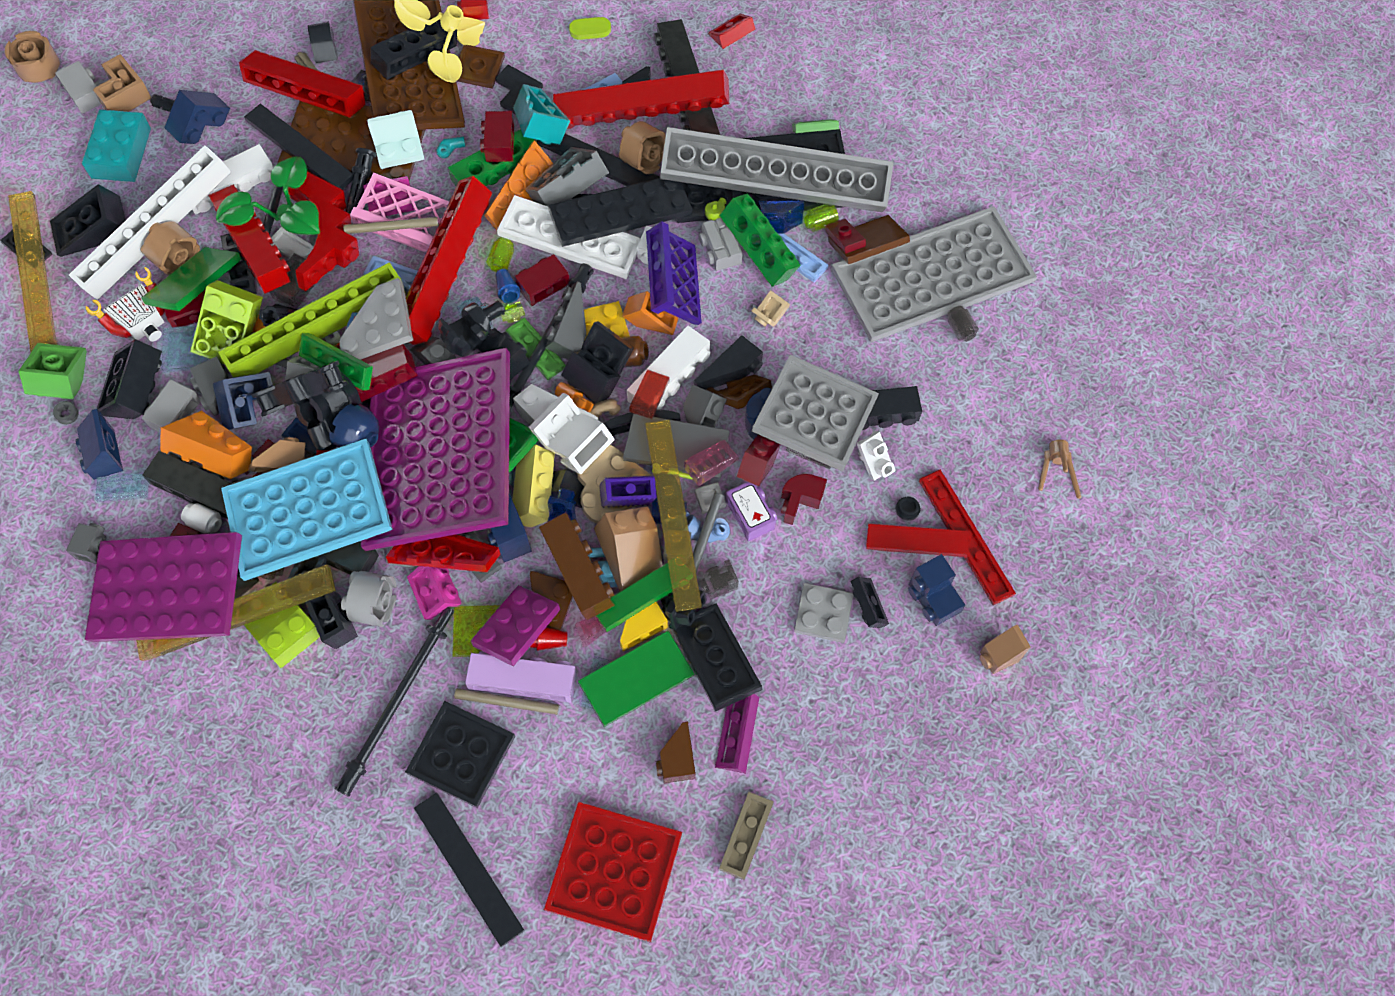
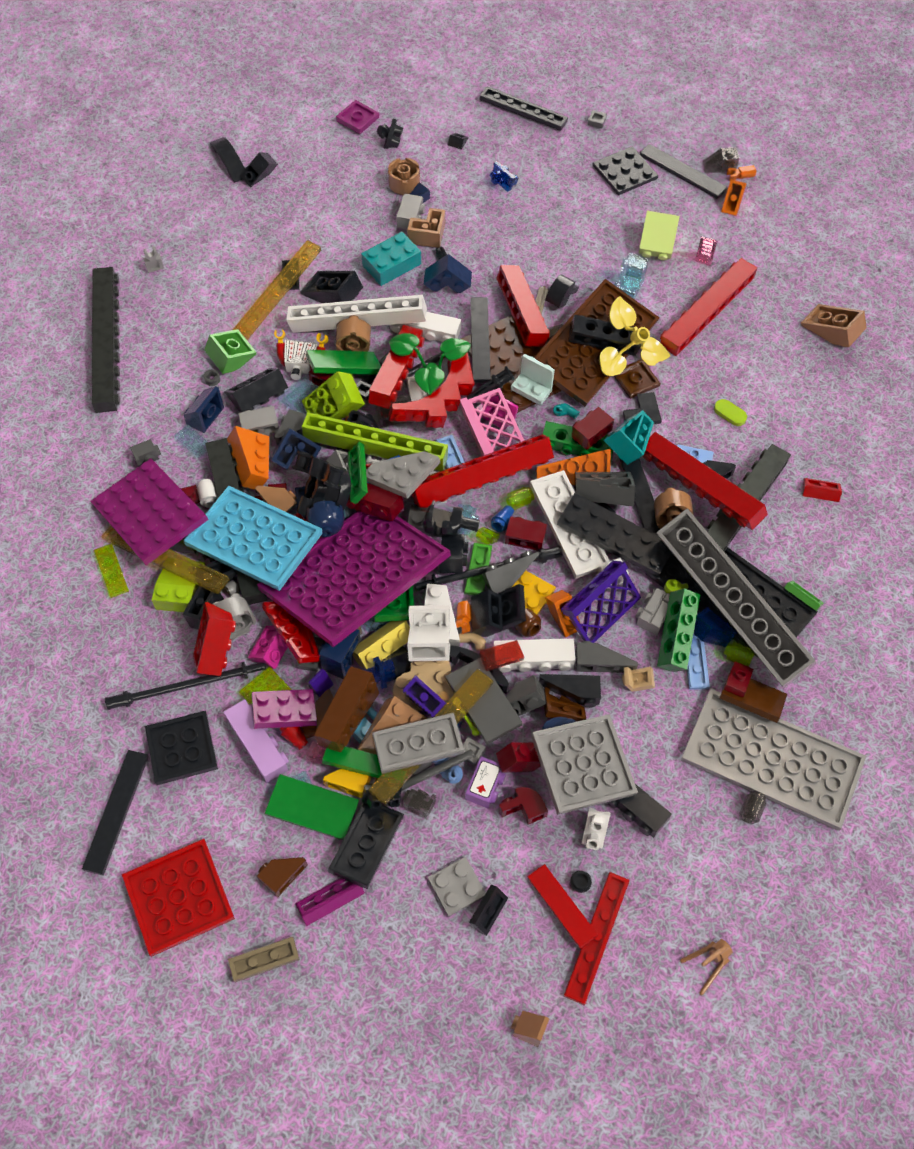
camera: 50 degrees right, 5 degrees down
(67, 57) = (421, 190): none -> dark blue slope
(190, 679) = (111, 570): none -> clear neon green tile
(338, 576) = (232, 587): none -> light grey hinge
(380, 633) = (213, 640): none -> red slope
(391, 225) = (478, 428): dark tan bar -> none
(506, 701) = (236, 746): dark tan bar -> none
(518, 573) = (320, 683): none -> dark purple slope
(670, 530) = (417, 743): none -> light grey tile
(699, 477) = (478, 733): clear pink slope -> none
(724, 322) = (598, 658): none -> dark grey slope
(934, 590) = (535, 943): dark blue brick -> none

